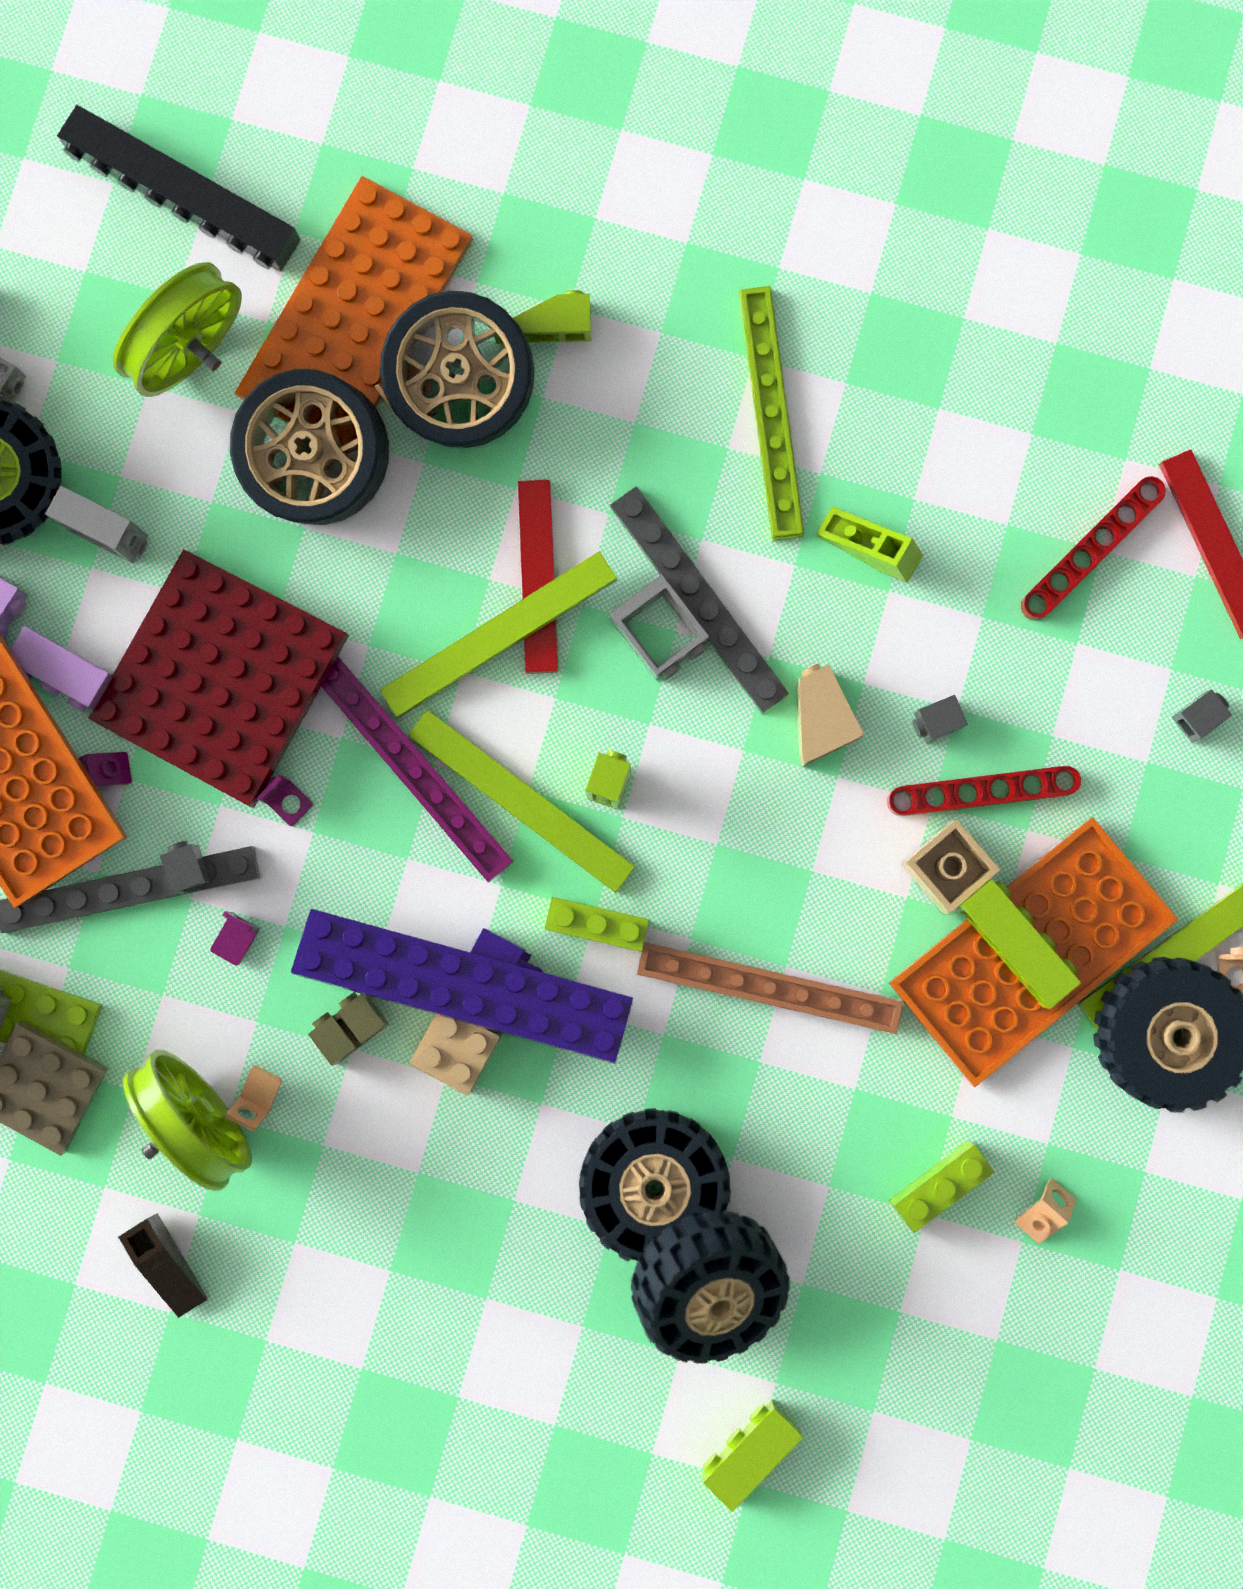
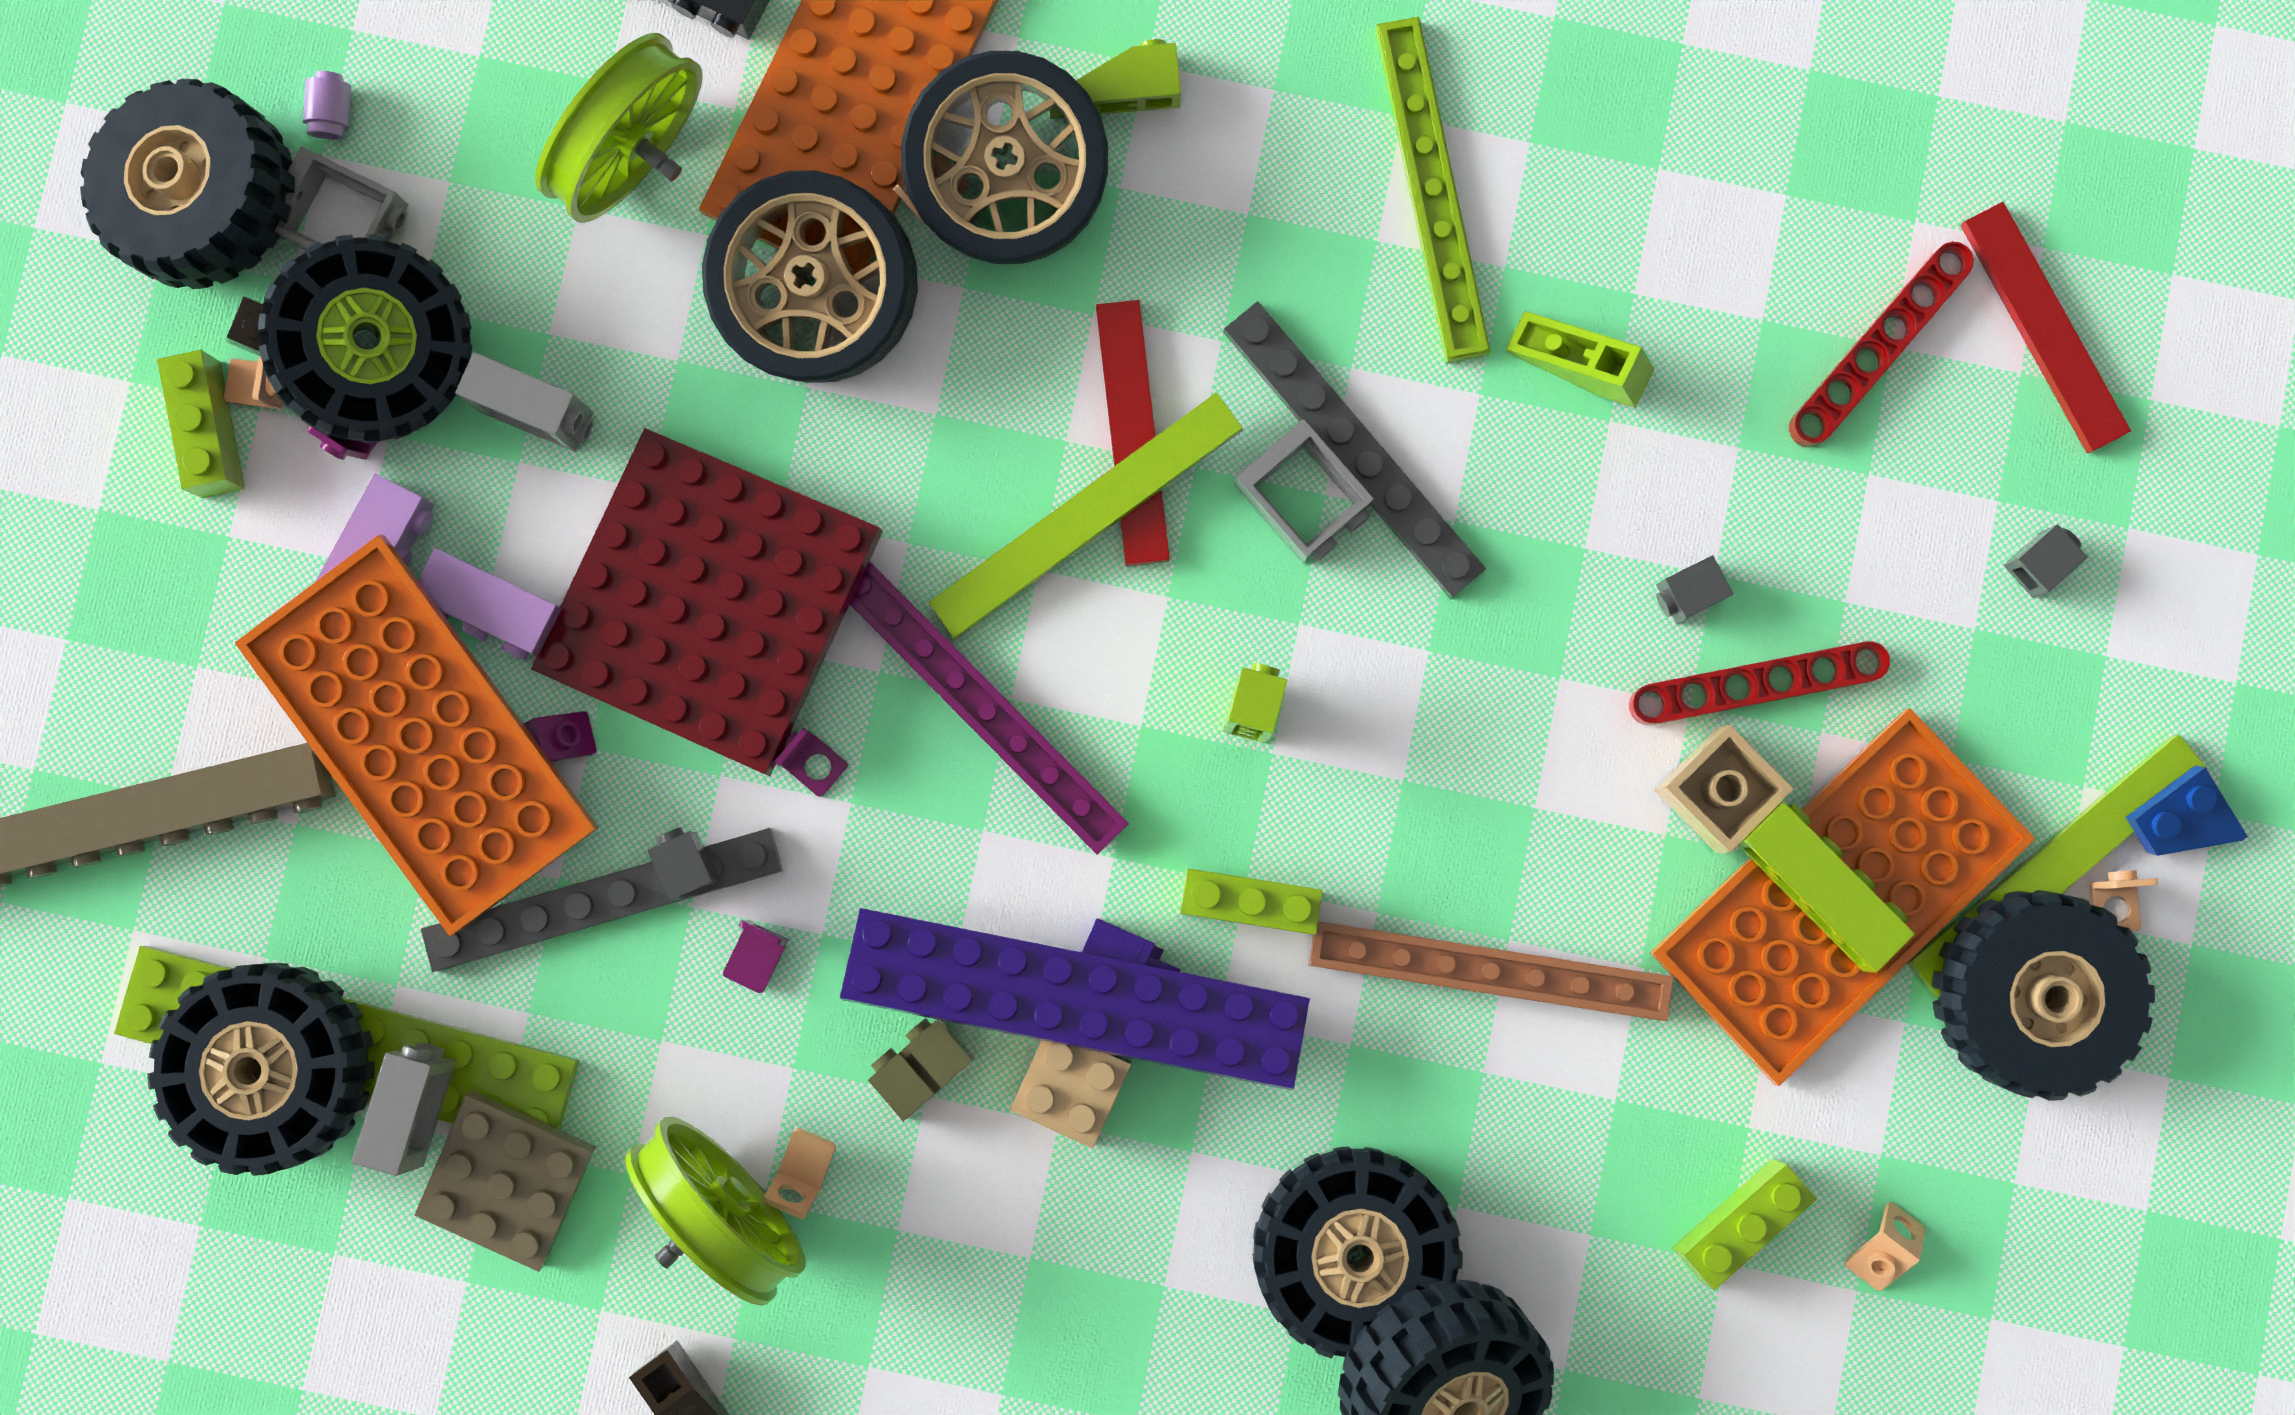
camera: 15 degrees left, 0 degrees up
(521, 801) = (1133, 741): lime tile -> none
(823, 715) = (1535, 595): tan slope -> none

